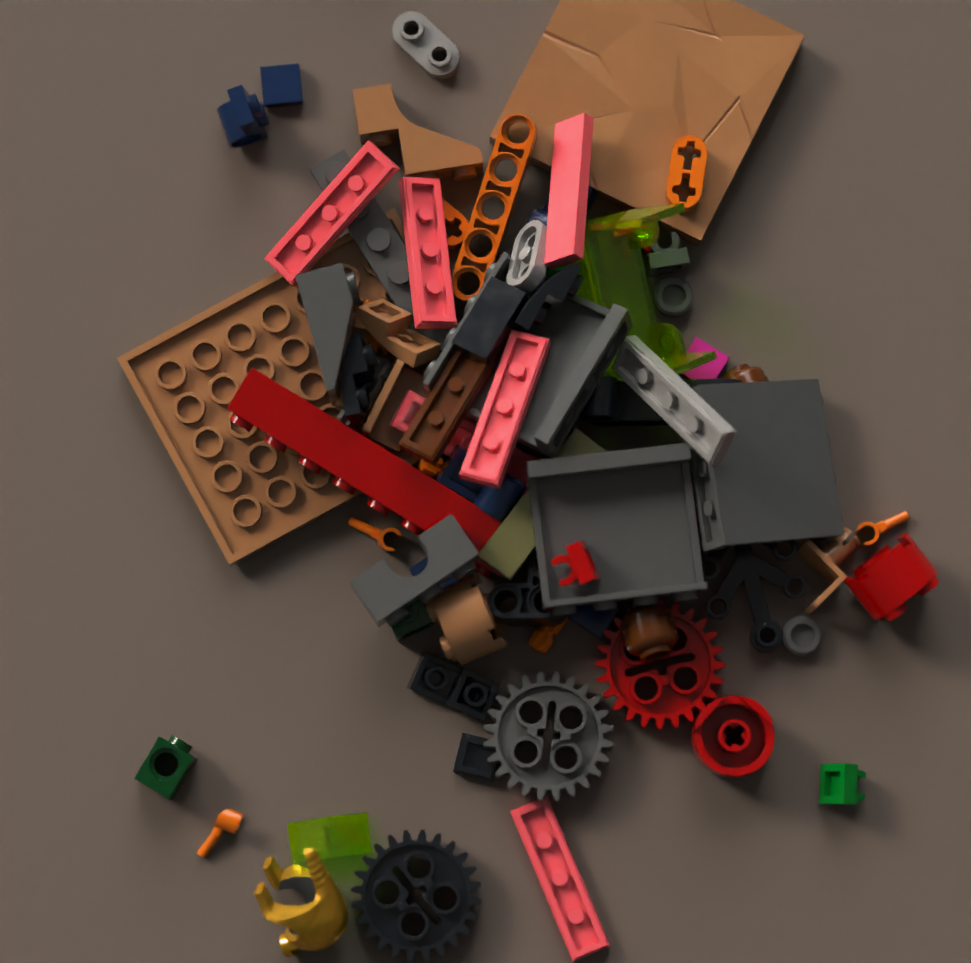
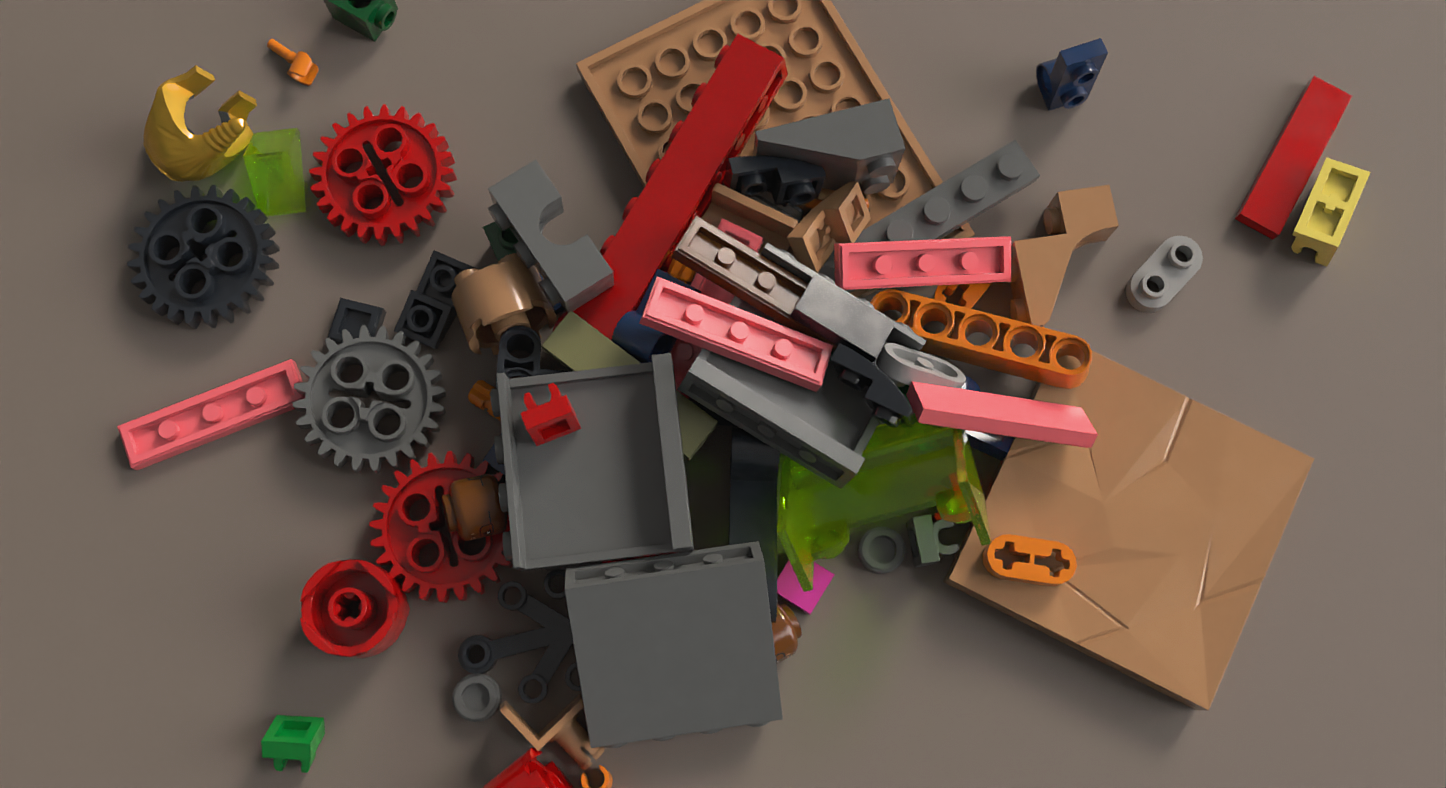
camera: 85 degrees right, 5 degrees down
(281, 85) = (1108, 122): dark blue tile -> none
(319, 705) = (347, 194): none -> red gear
(332, 212) = (970, 160): coral tile -> none
(374, 532) = (610, 217): orange hand -> none
(673, 400) = (744, 532): light grey tile -> none

